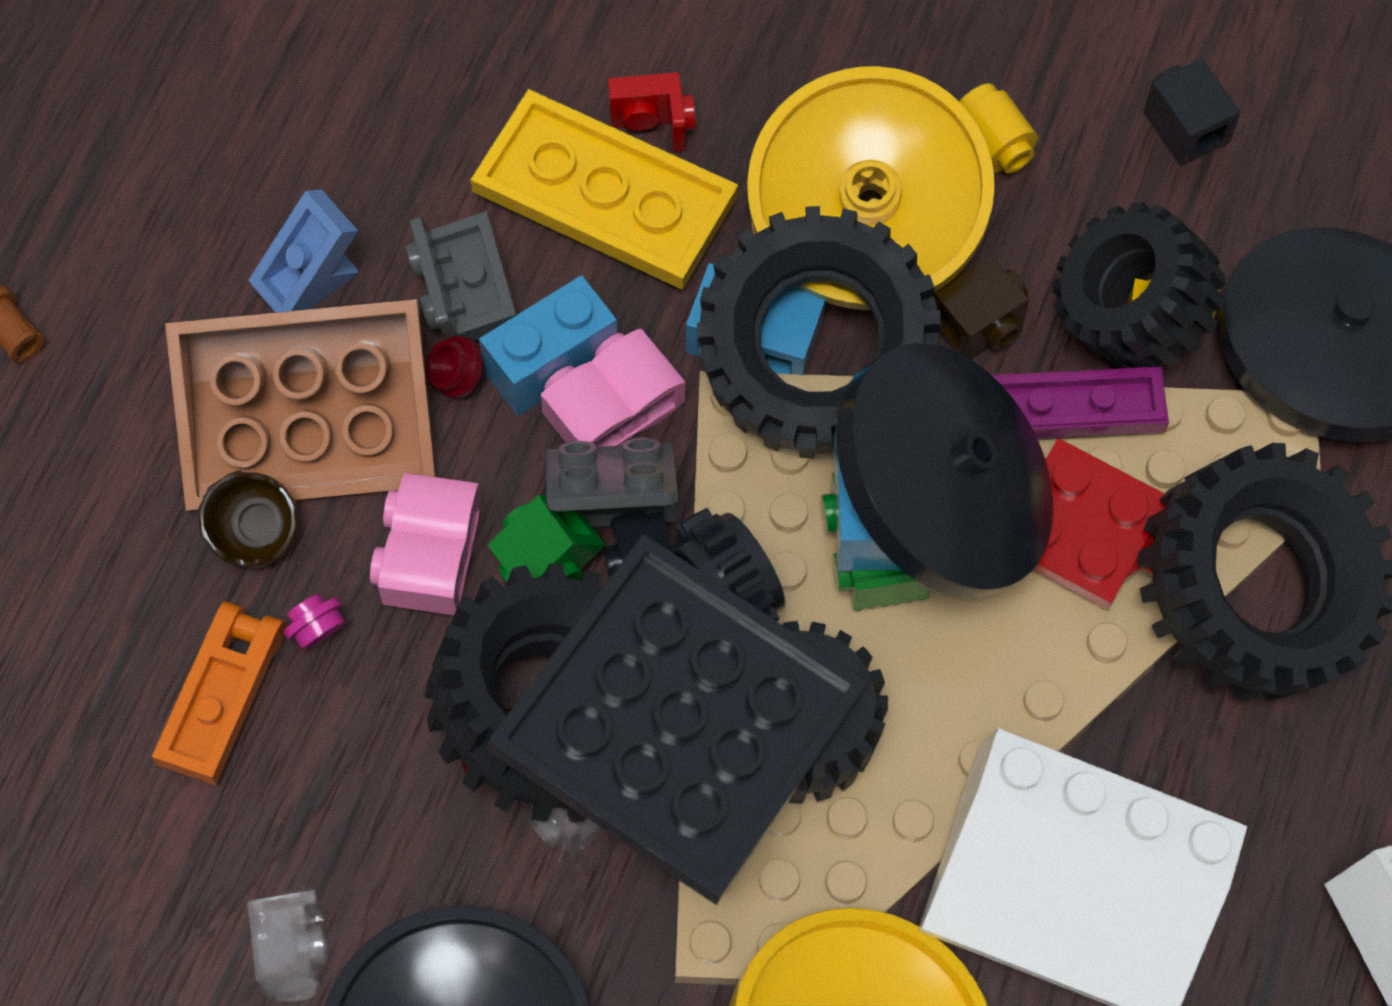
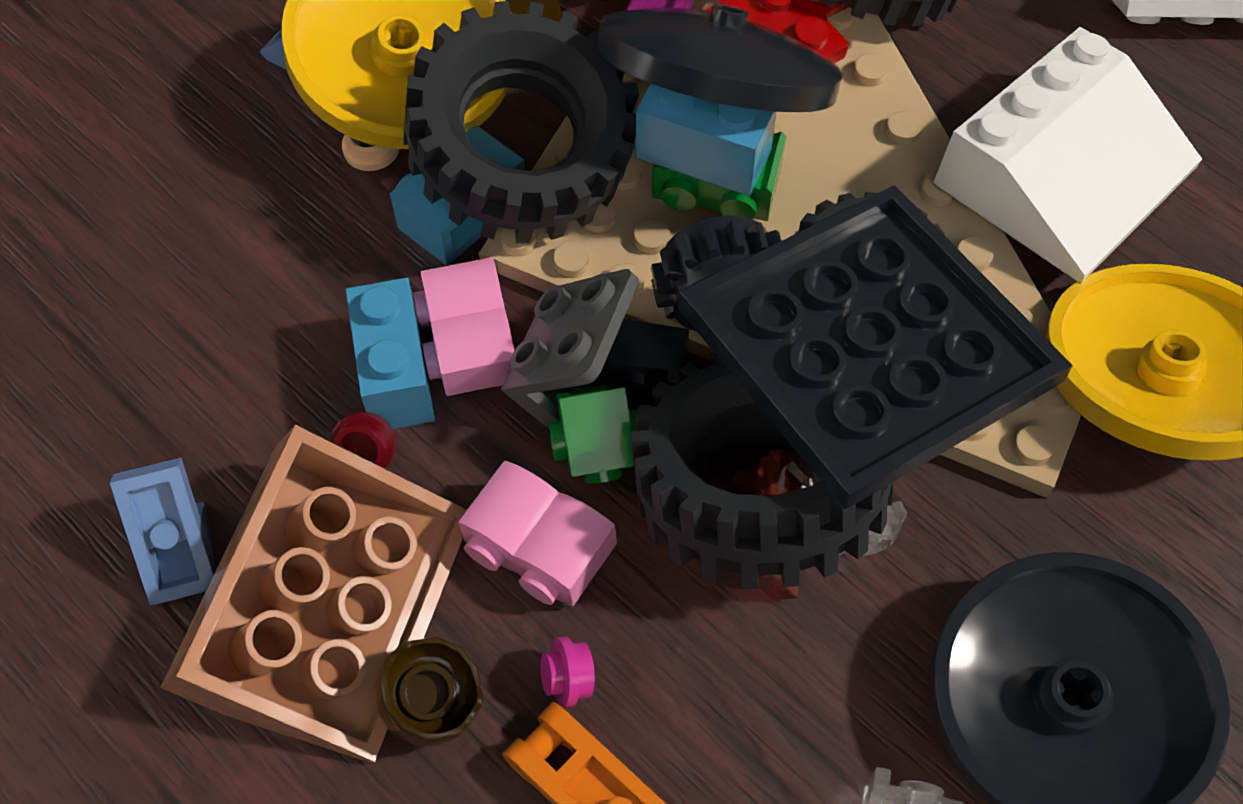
camera: 65 degrees left, 5 degrees down
(463, 276) = (271, 396): dark grey bracket -> none
(605, 188) = (252, 260): yellow plate -> none
(651, 101) = (194, 186): red bracket -> none

